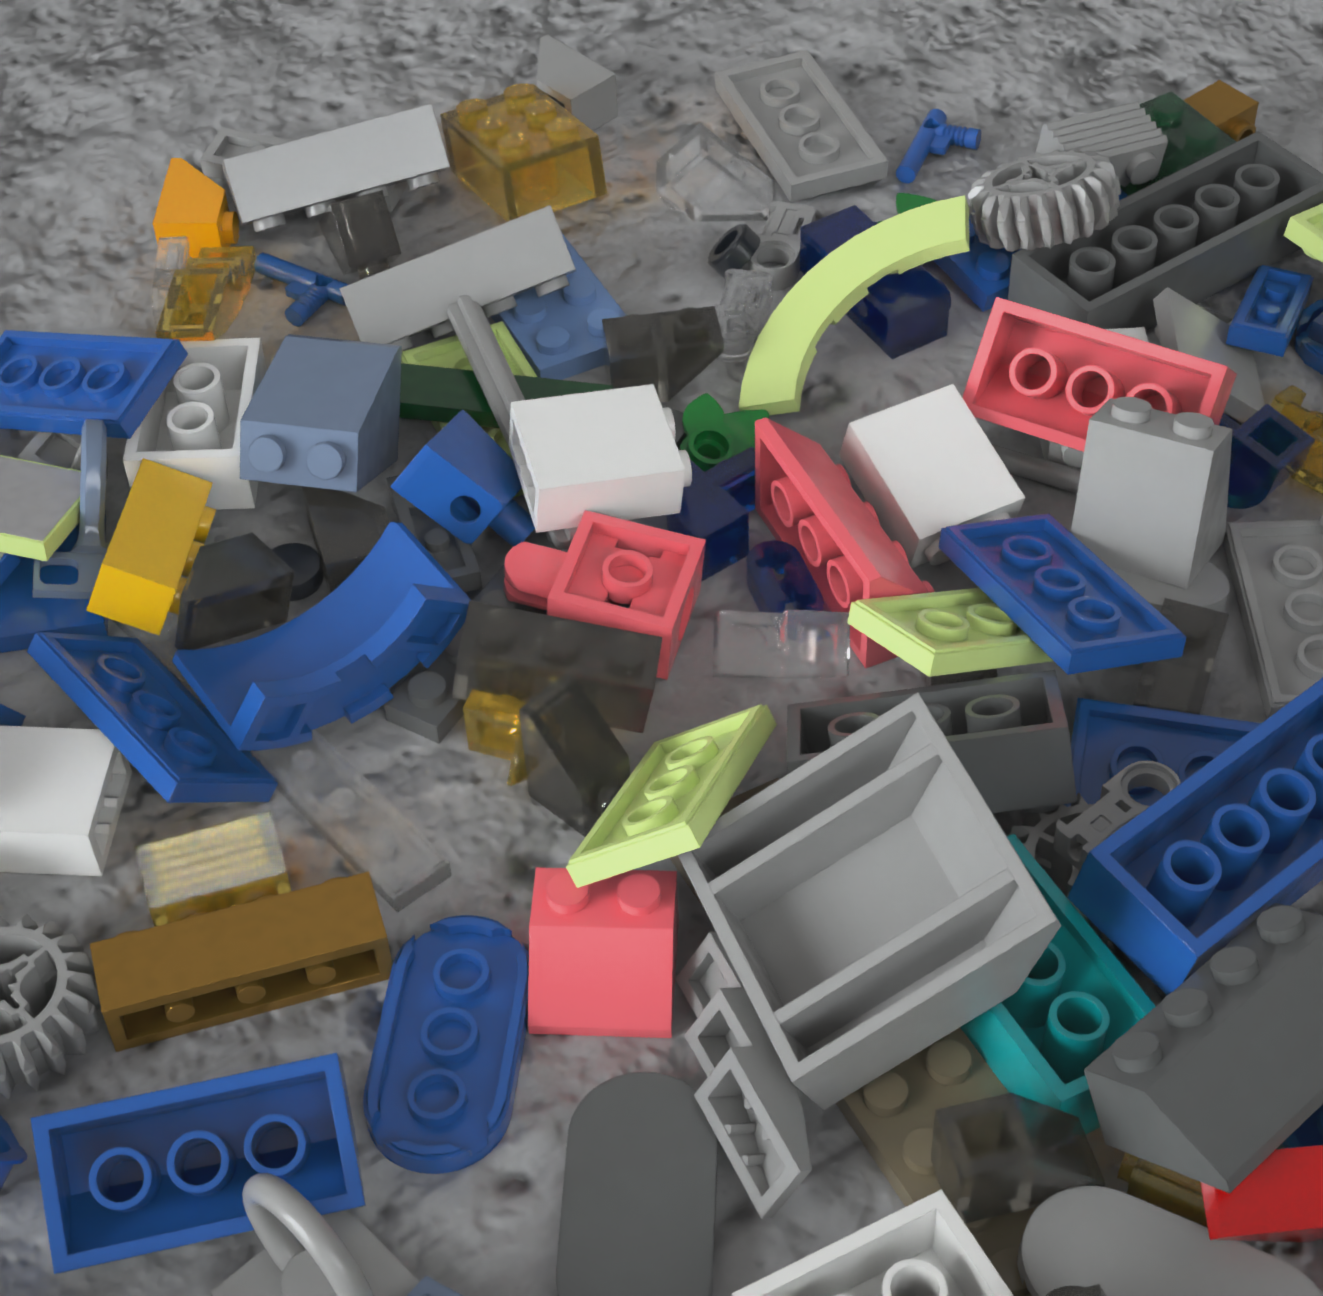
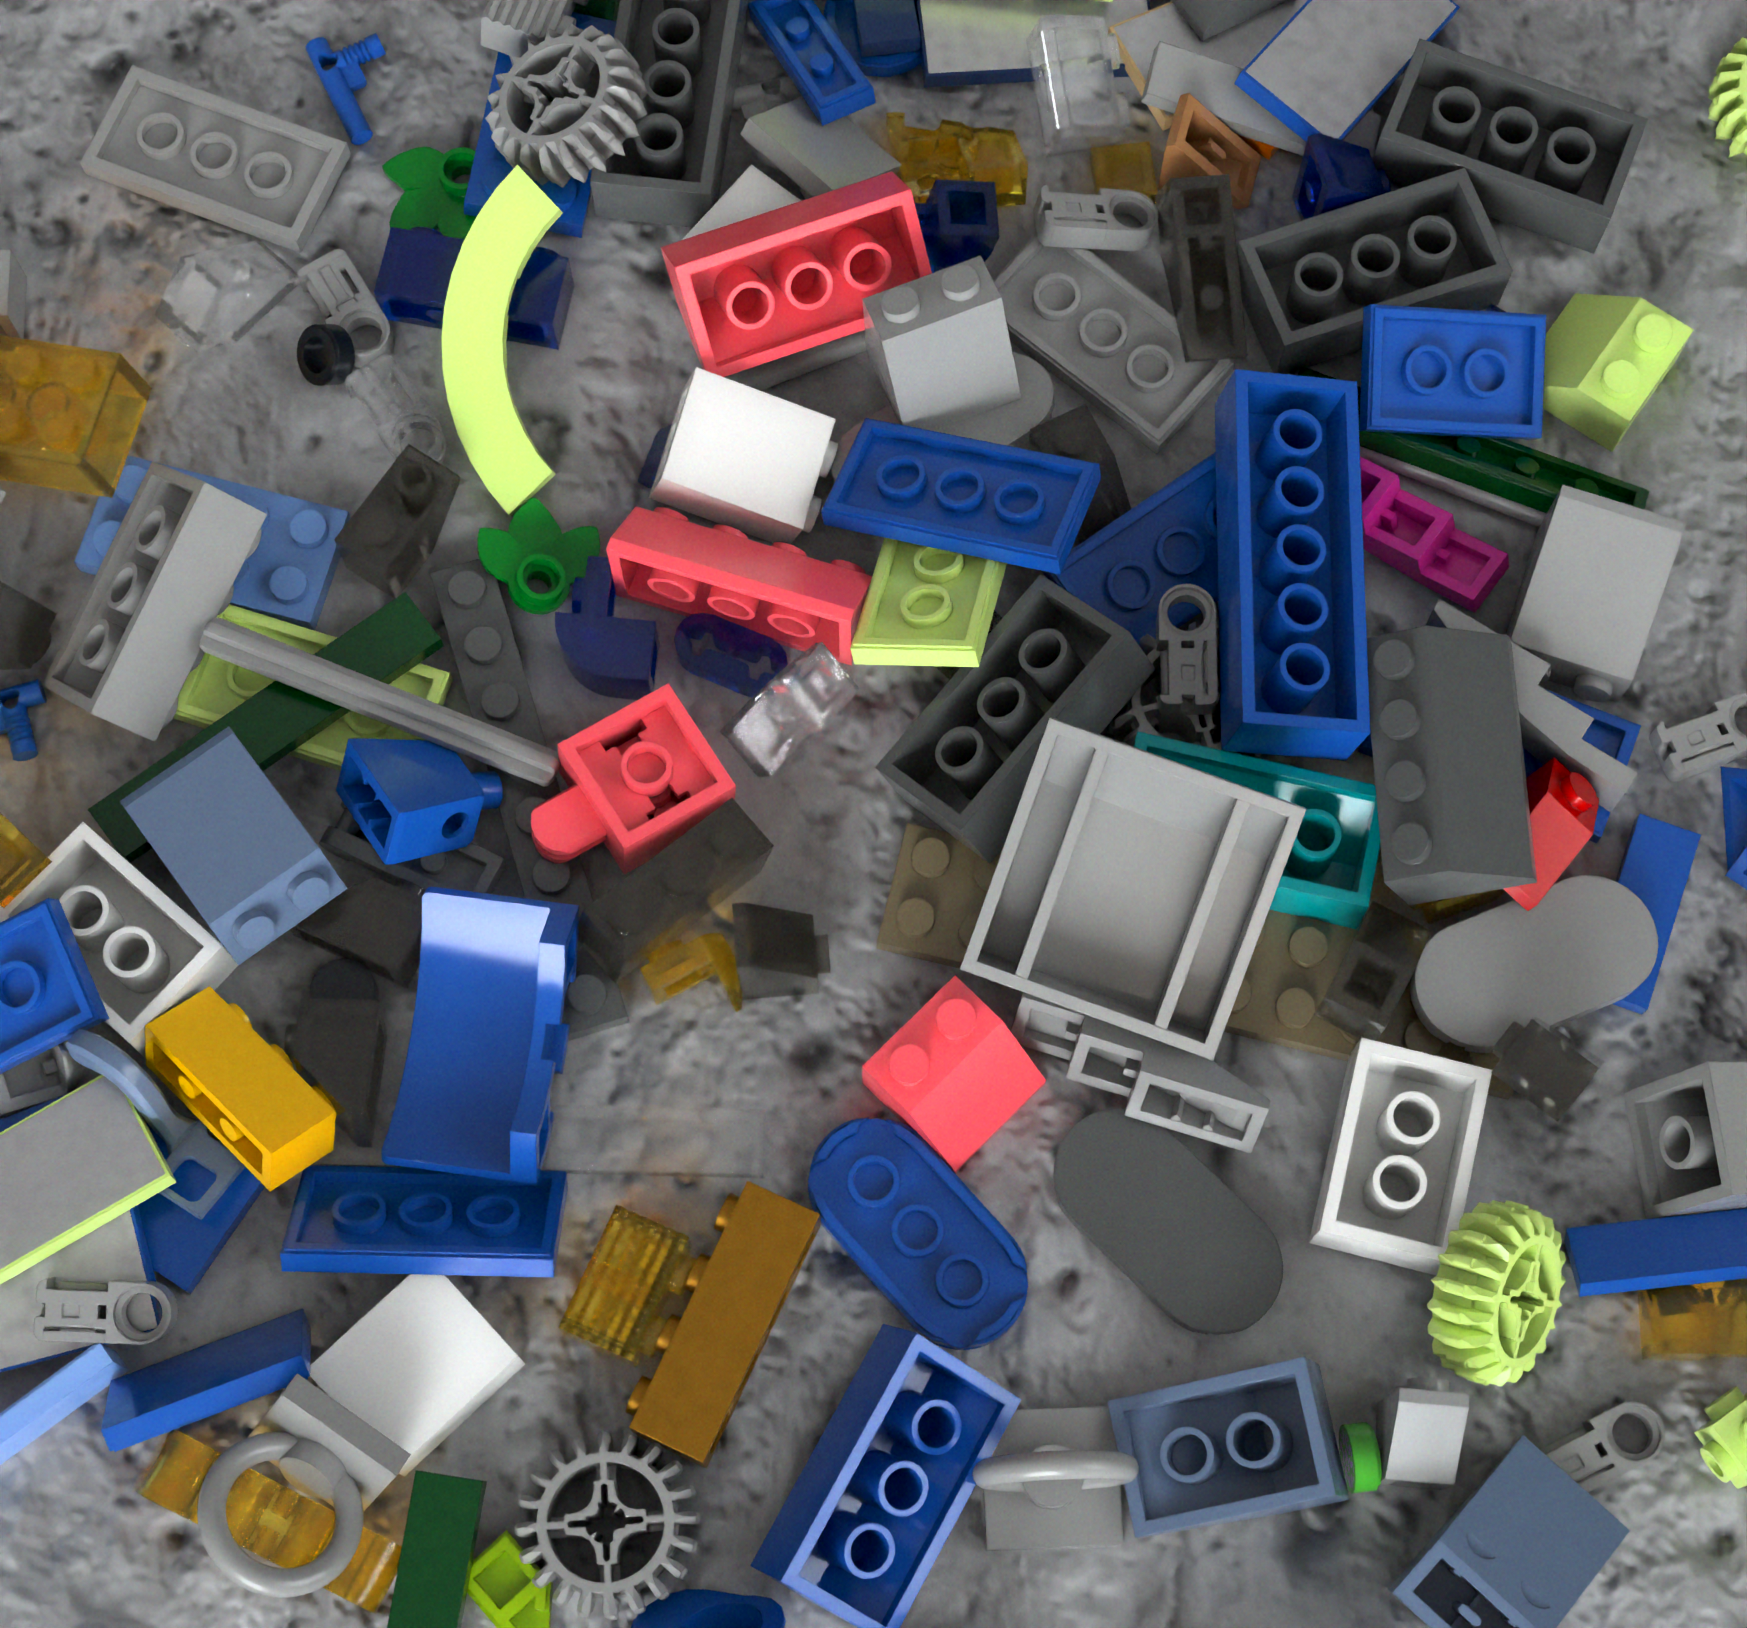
camera: 50 degrees left, 25 degrees up
(597, 455) = (513, 688): white brick -> none
(672, 796) = (897, 921): yellowish green tile -> none

